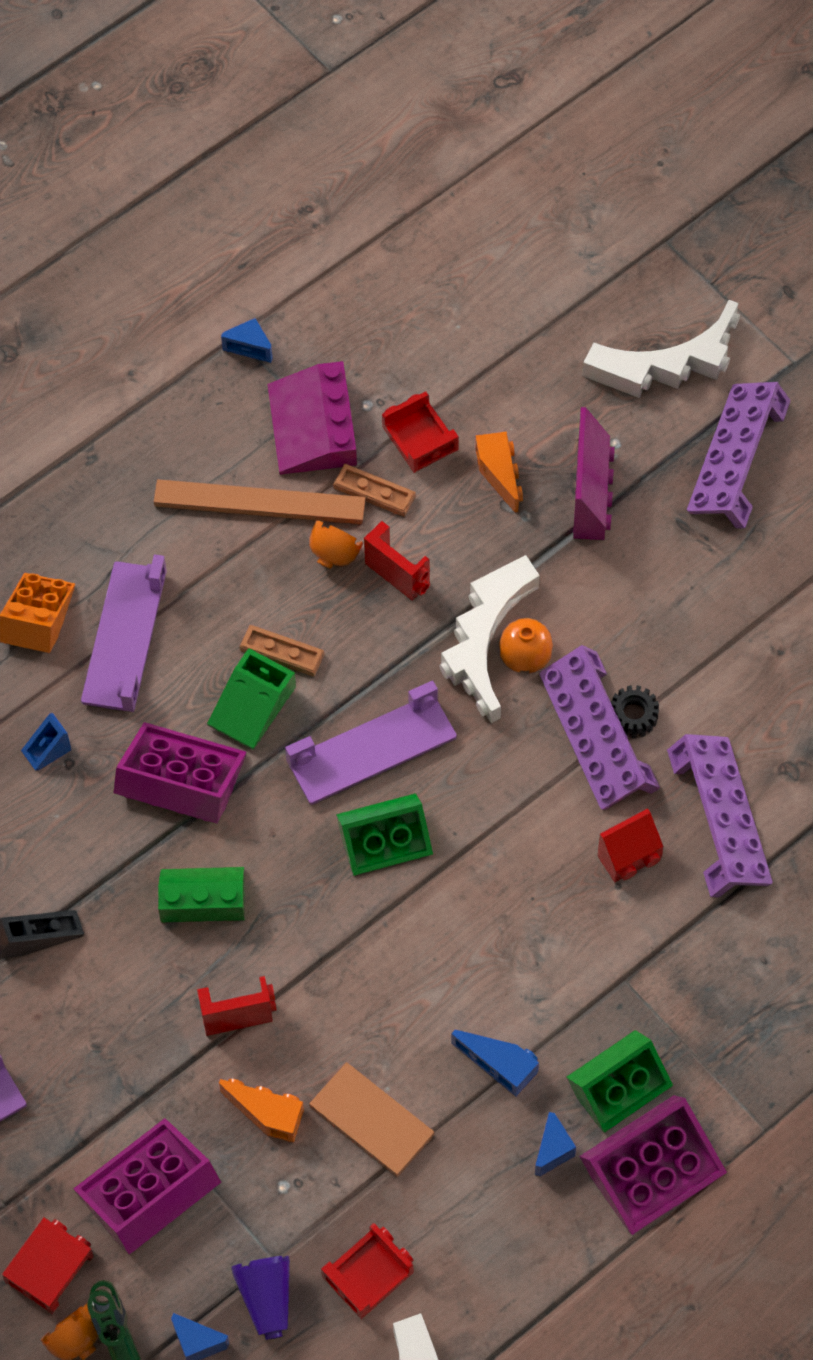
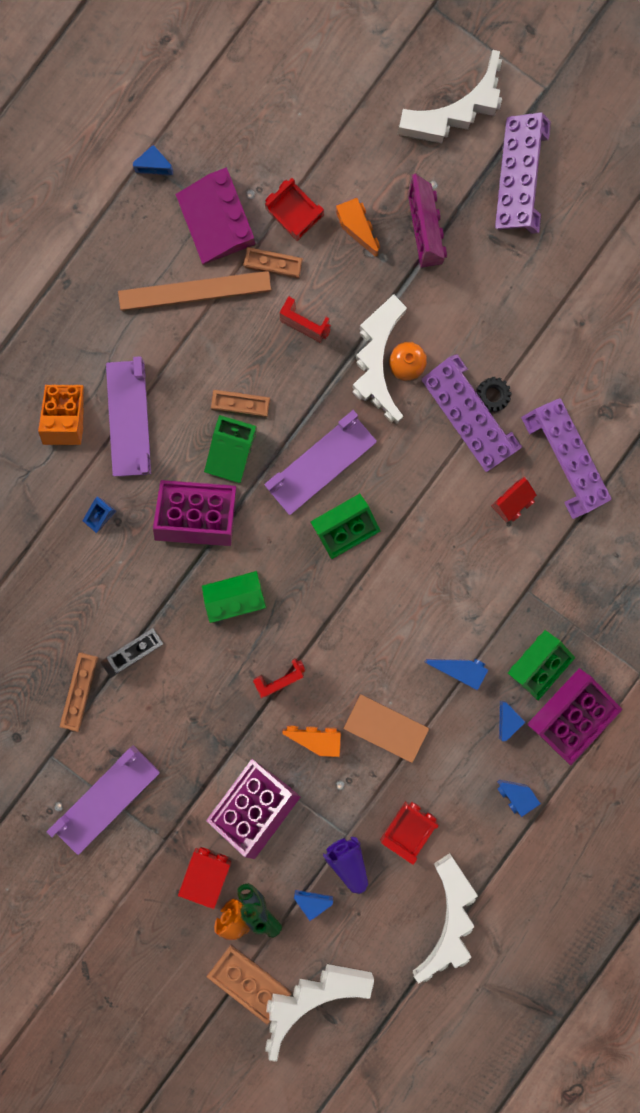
camera: 15 degrees left, 25 degrees up
(333, 546) = (256, 317): orange cylinder -> none
(544, 1256) = (519, 795): none -> blue slope

